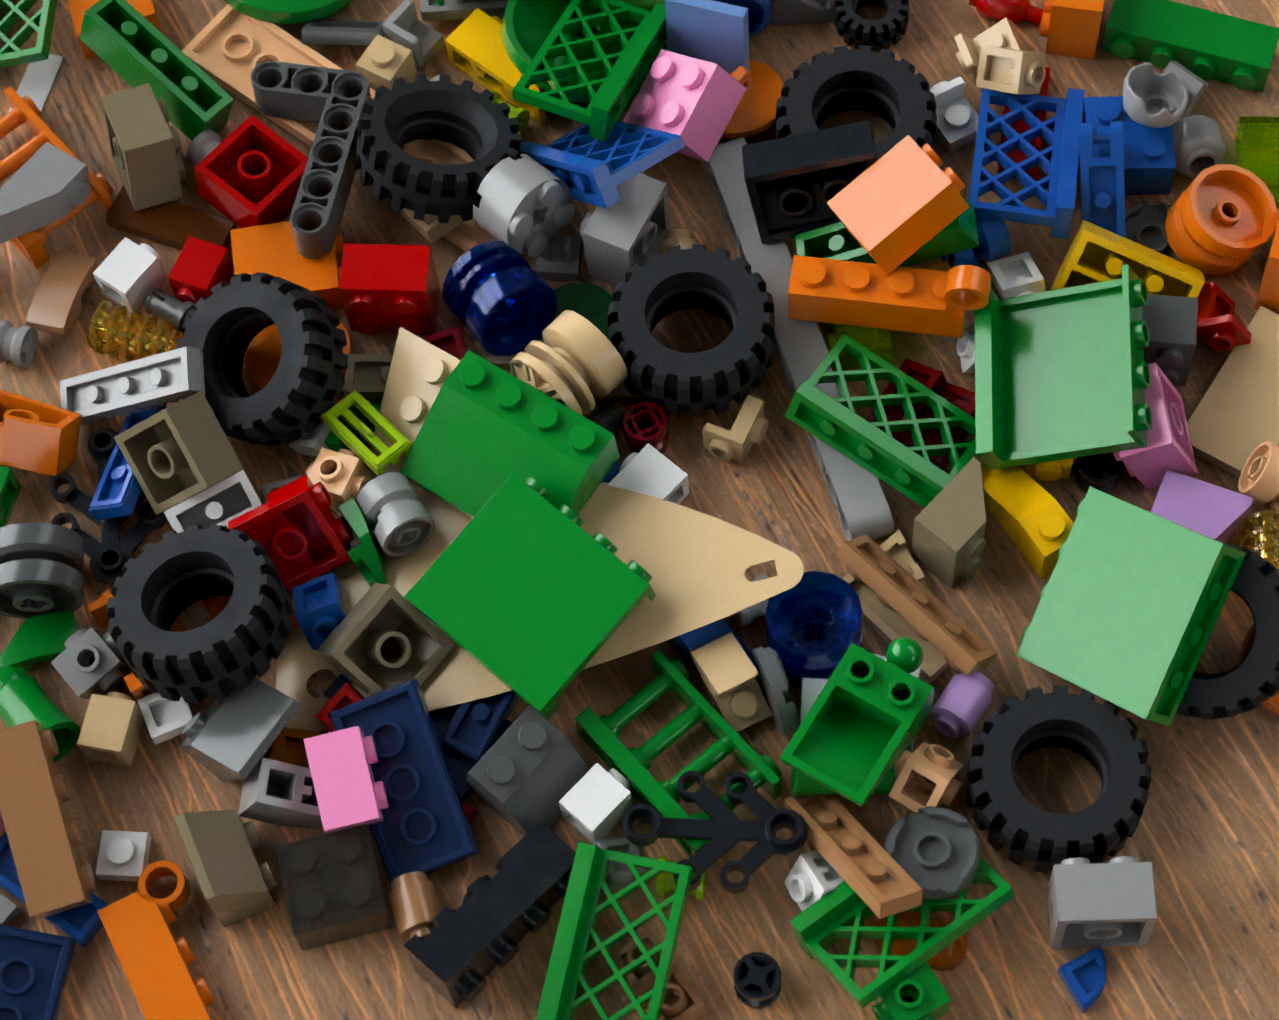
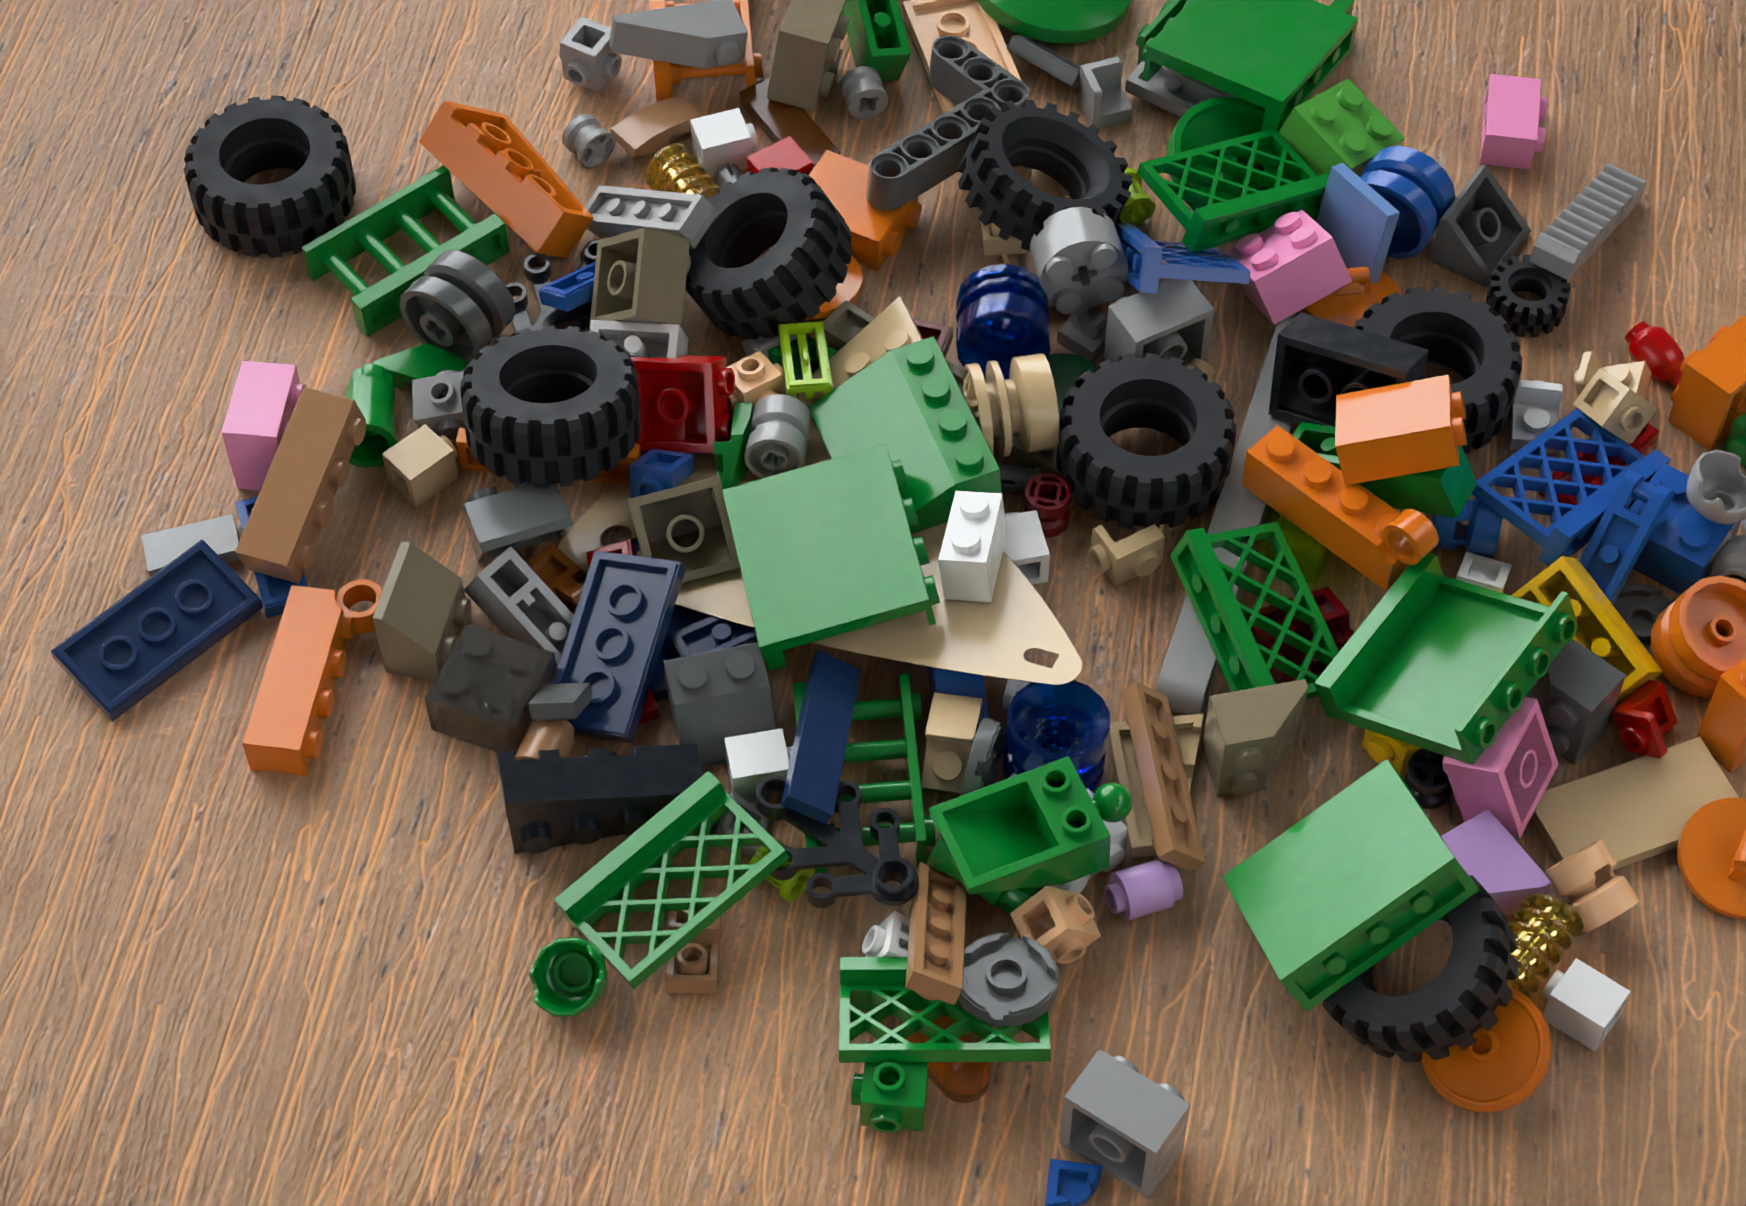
camera: 30 degrees right, 10 degrees down
(122, 855) = (352, 562): white plate -> none
(164, 717) = (469, 477): white plate -> none
(251, 175) = (875, 113): red brick -> none
(345, 779) = (562, 603): bright pink brick -> none
(385, 62) = (1064, 92): tan brick -> none
(389, 288) = (919, 263): red brick -> none
(404, 860) = (560, 701): none -> dark grey tile
(480, 53) = (1147, 136): yellow slope -> none
(638, 512) = (973, 546): none -> white brick
(638, 750) = (821, 737): none -> dark blue tile
(753, 970) = (772, 981): black wheel -> none
(1027, 515) = (1330, 758): yellow slope -> none
(1067, 723) = (1186, 942): black tyre -> none

